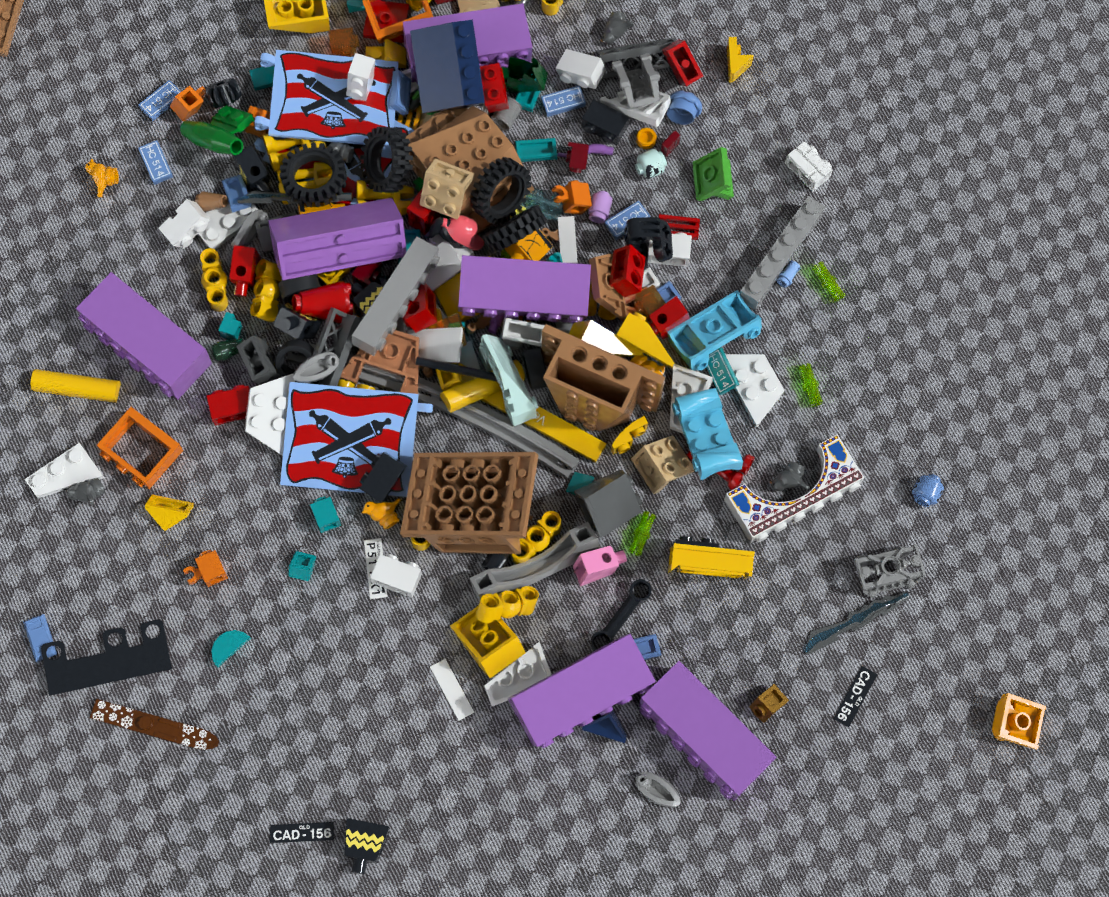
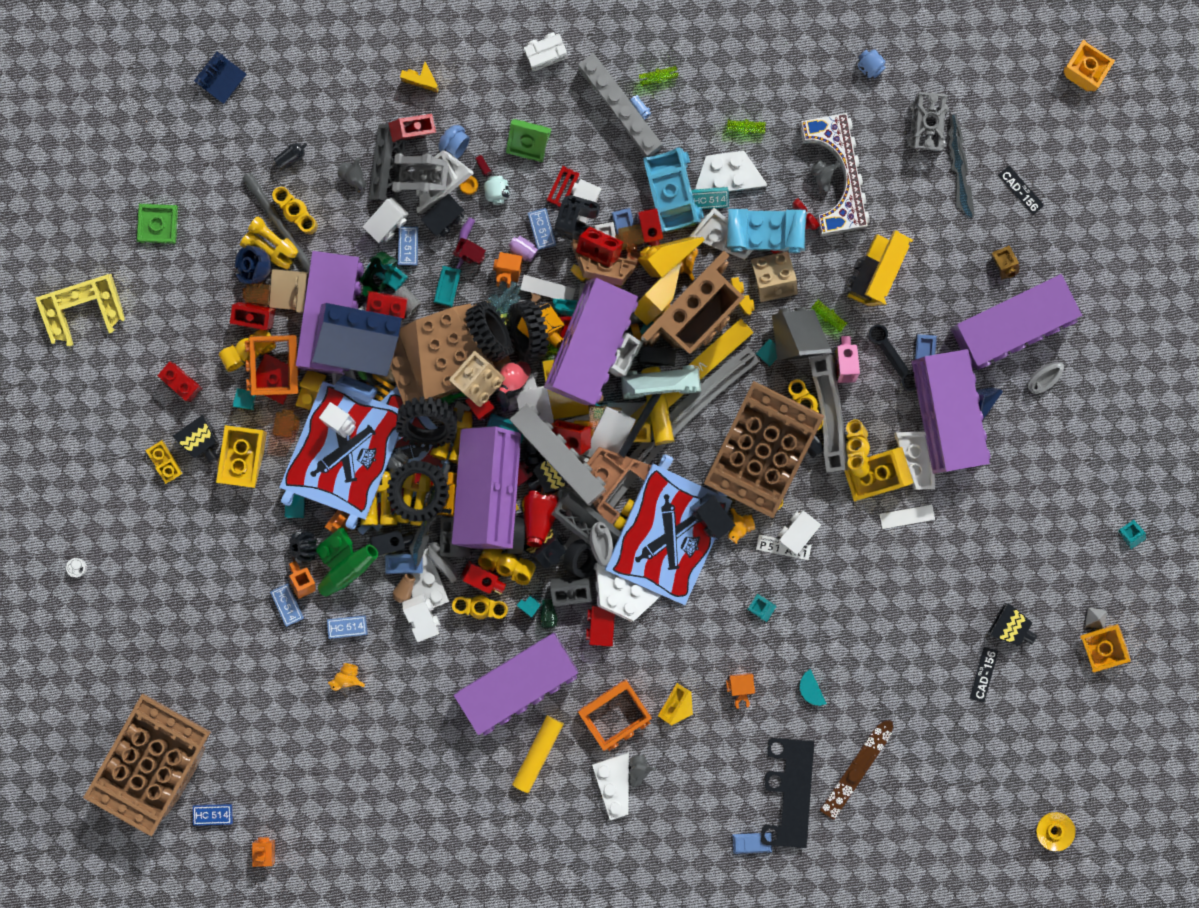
camera: 65 degrees left, 15 degrees up
(325, 514) = (725, 575): teal brick -> none

